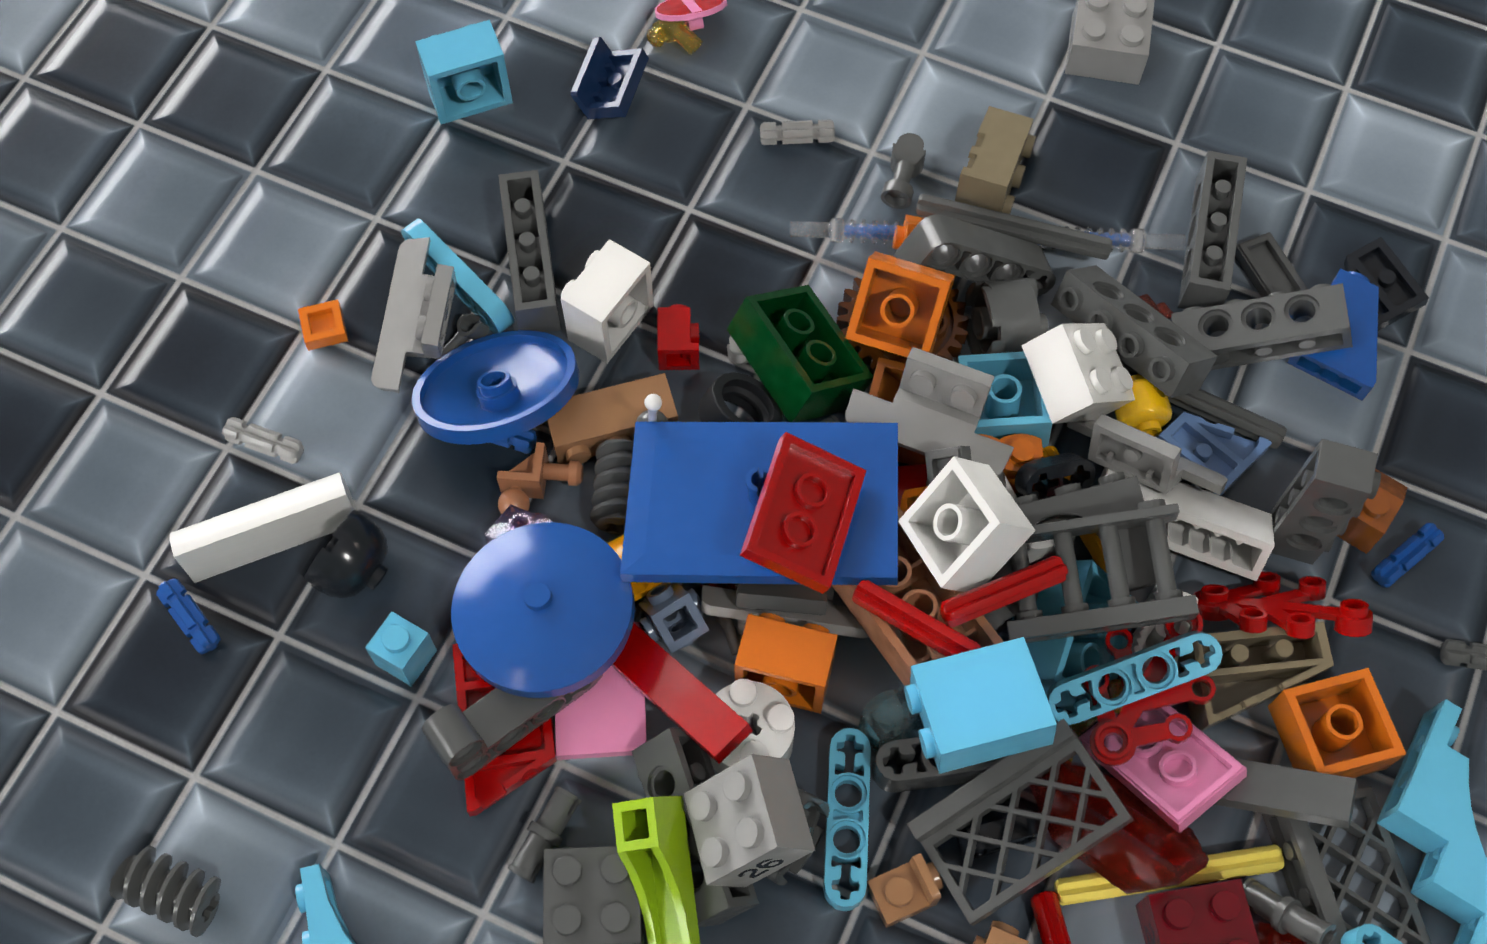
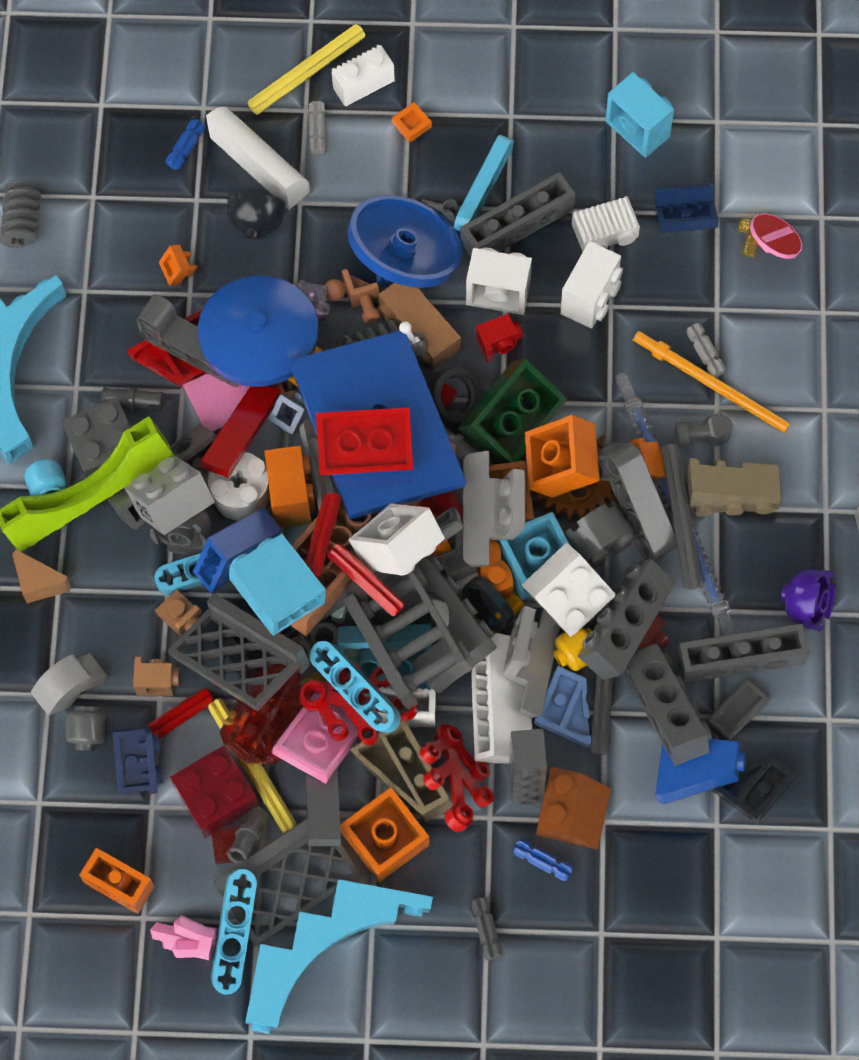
camera: 70 degrees right, 5 degrees up
(170, 423) = (306, 69): none -> light yellow axle
(223, 353) = (363, 75): none -> white brick
(368, 696) = (175, 265): none -> orange tile
(401, 648) = (210, 268): medium azure brick -> none
(414, 314) = (438, 172): light grey plate -> none
(585, 168) = (606, 224): none -> white brick
(664, 203) = (591, 285): none -> white brick
(780, 174) = (662, 352): none -> light orange bar
(855, 768) = (231, 542): none -> blue slope
(1165, 141) = (809, 598): none -> dark purple cylinder

